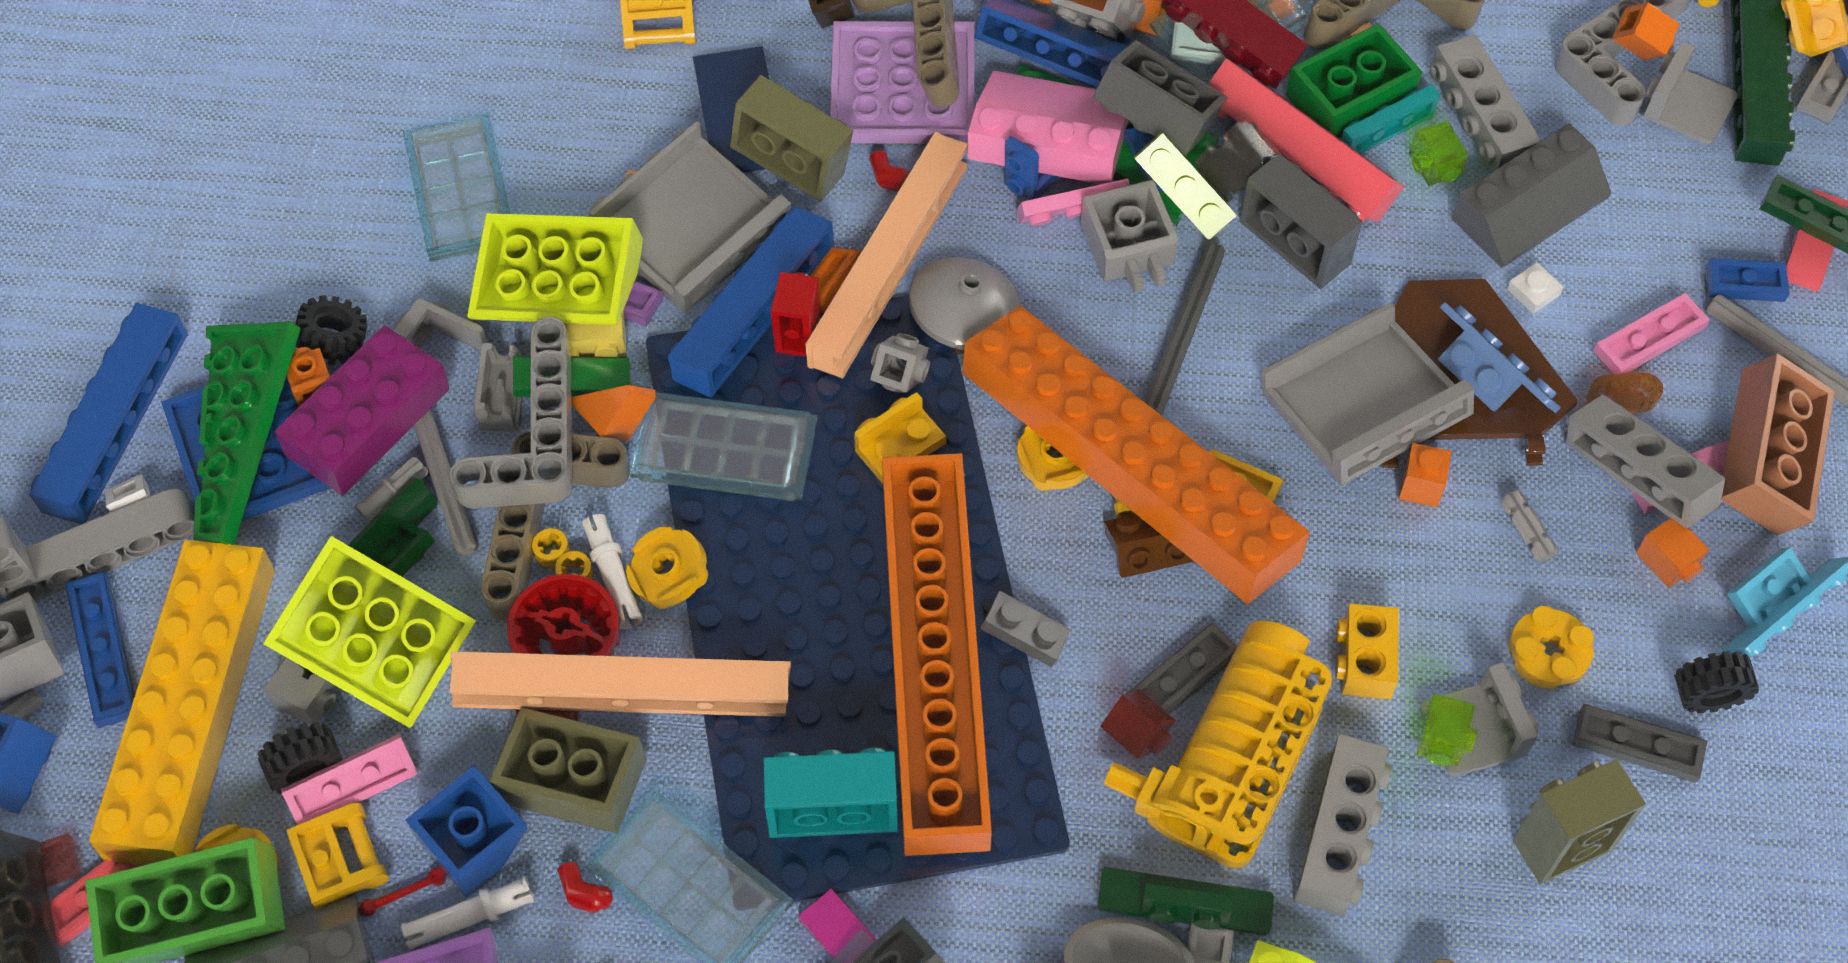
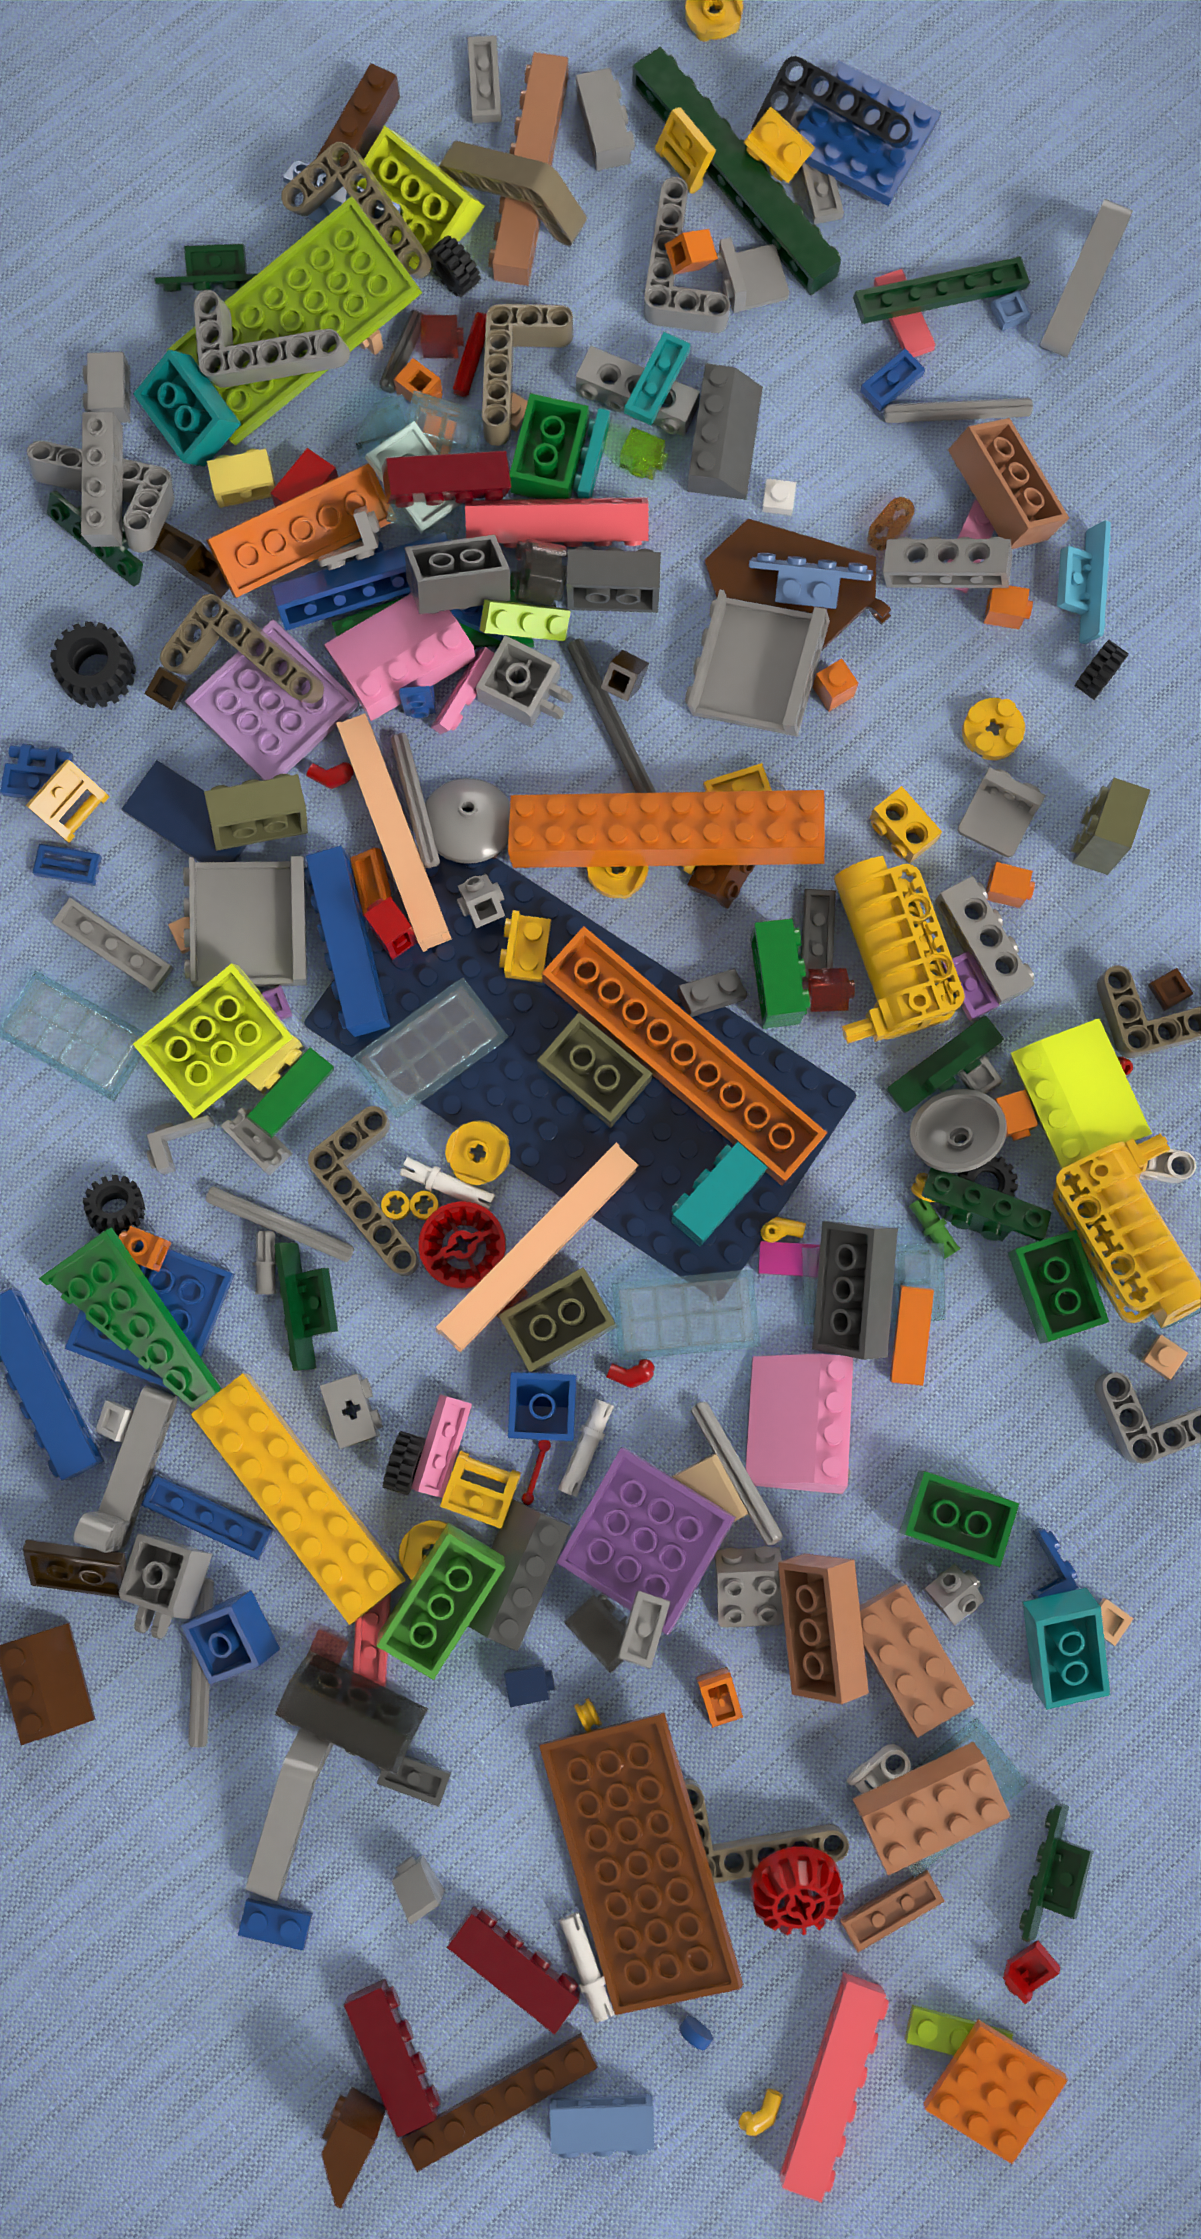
camera: 45 degrees left, 20 degrees up
(363, 410) = (200, 1235): magenta brick -> none
(369, 632) = (363, 1357): neon yellow slope -> none
(545, 426) = (323, 1142): light grey beam -> none
(567, 146) = (112, 945): none -> light grey plate
(616, 410) = (344, 1092): orange slope -> none
(617, 81) = (92, 870): none -> blue tile
(841, 587) = (594, 1070): none -> olive brick
(863, 895) = (780, 1227): none -> yellow arm
(934, 245) = (415, 800): none -> light grey axle
(1102, 662) = (779, 973): none -> green brick
(1230, 303) = (624, 675): none -> dark brown brick
(1285, 851) = (977, 992): none -> medium lavender plate
(1421, 795) = (1009, 885): none -> orange brick
(1446, 731) = (992, 836): clear neon green brick -> none
(1509, 98) = (657, 378): none -> teal plate
(1529, 526) = (915, 662): light grey axle -> none
(1640, 743) = (1086, 742): dark grey tile -> none
(1651, 335) = (873, 470): bright pink plate -> none

